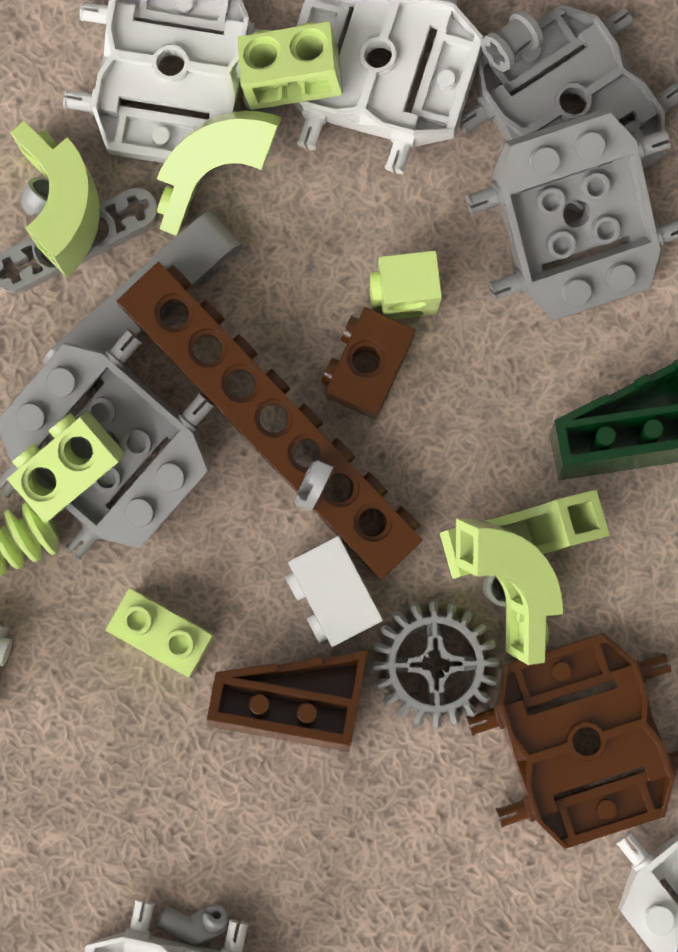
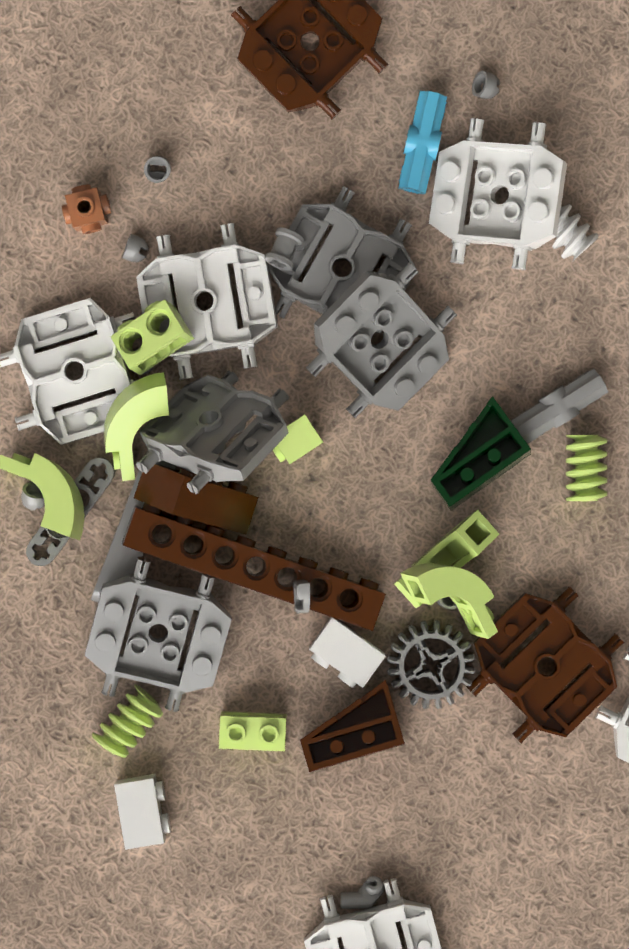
camera: 30 degrees left, 5 degrees up
(71, 472) = (149, 663): yellowish green brick -> none
(245, 293) = (213, 505): none -> reddish brown wedge
(300, 195) = (192, 445): none -> light grey piece
(384, 339) = (298, 518): reddish brown brick -> none

